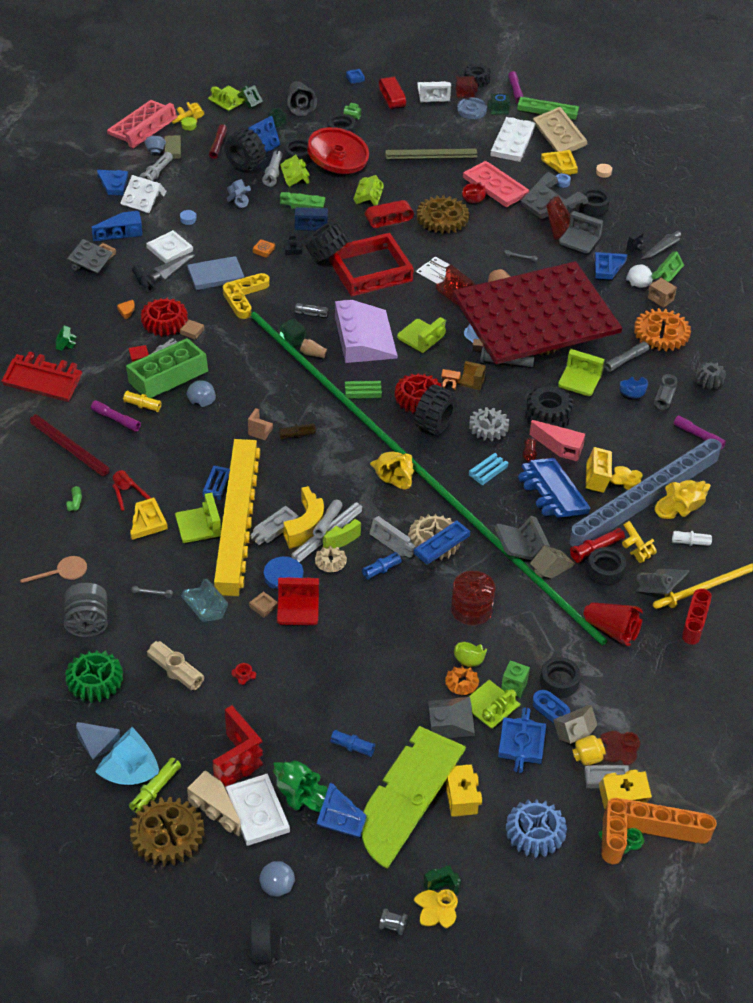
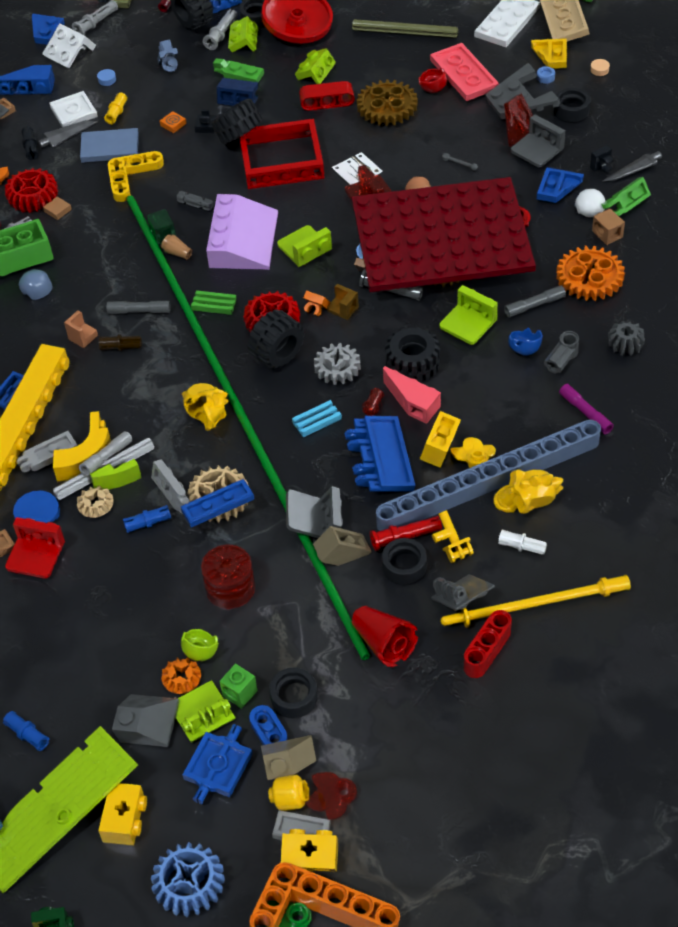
camera: 20 degrees right, 5 degrees up
(209, 241) = (115, 108): none -> yellow pin
(283, 403) = (124, 307): none -> dark grey piece

